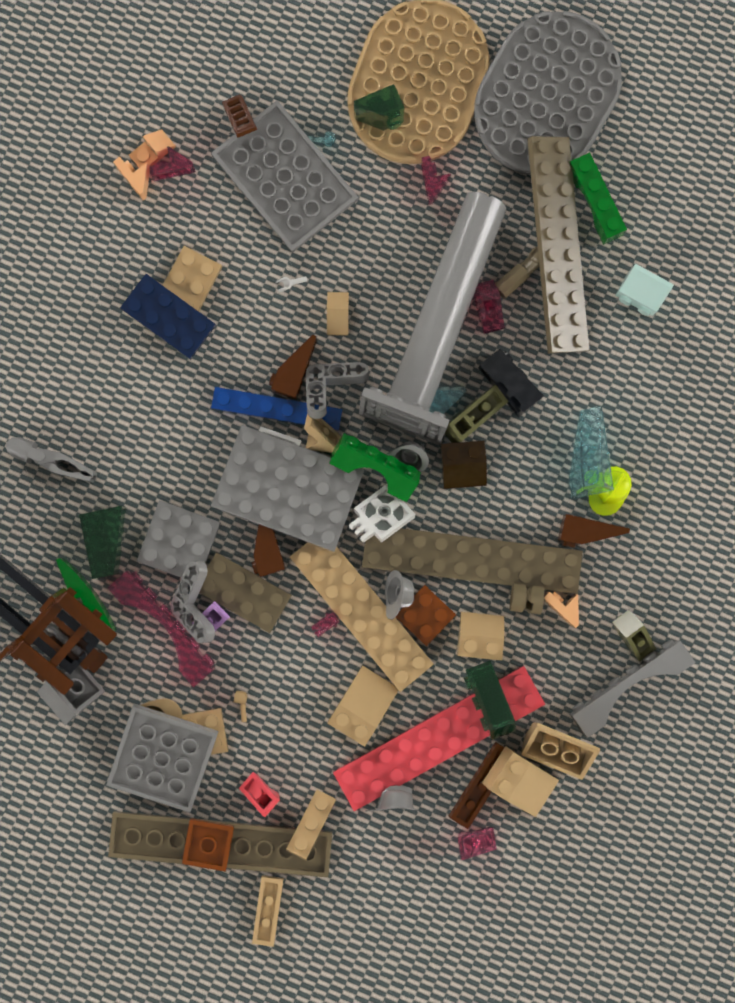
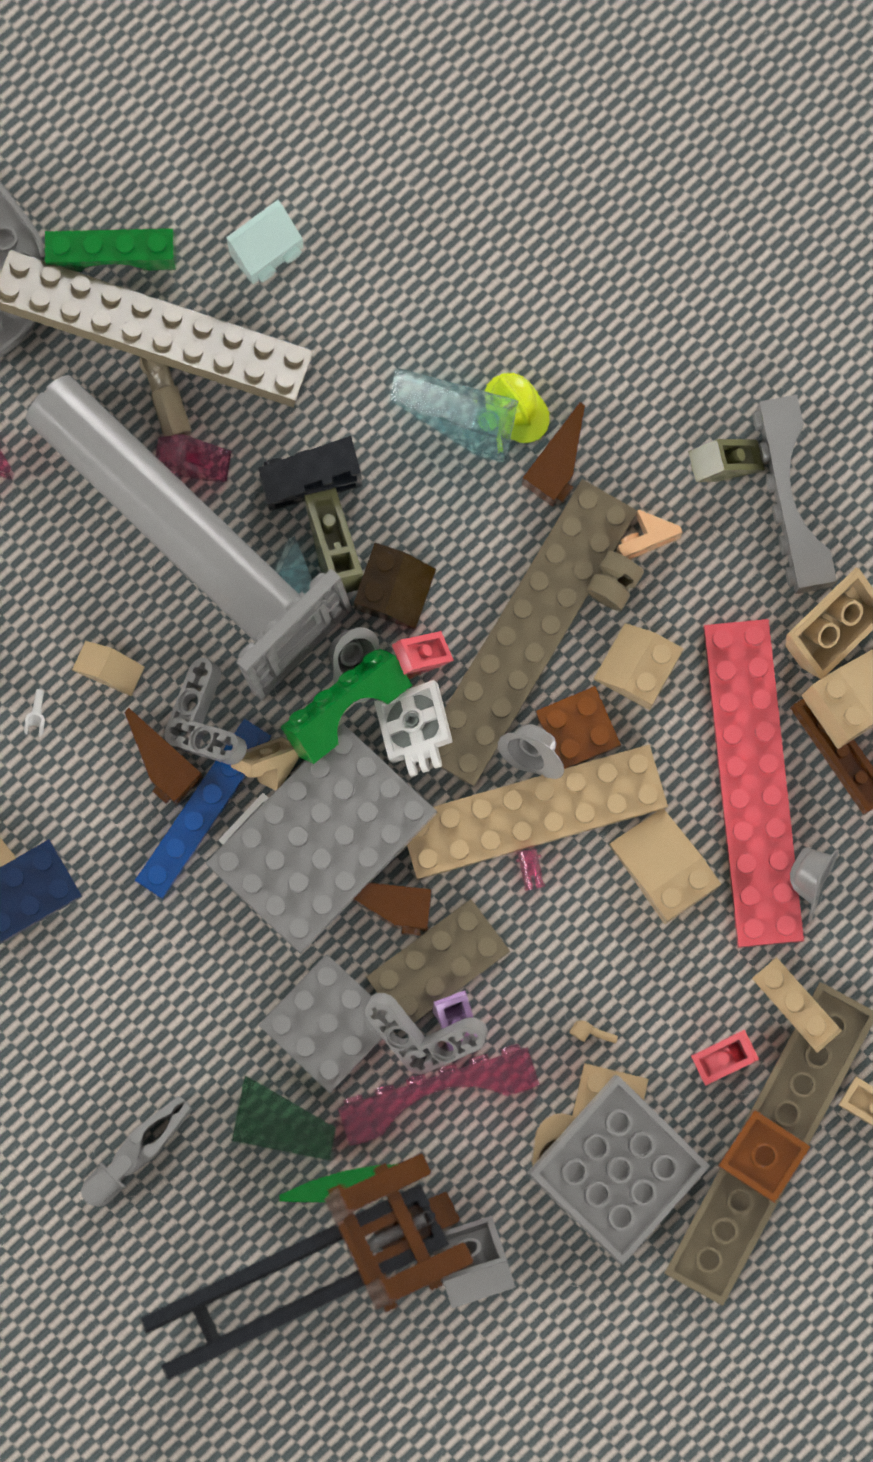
camera: 65 degrees left, 5 degrees down
(429, 499) = (422, 653): none -> coral slope
(490, 700) = (731, 686): clear green wedge -> none

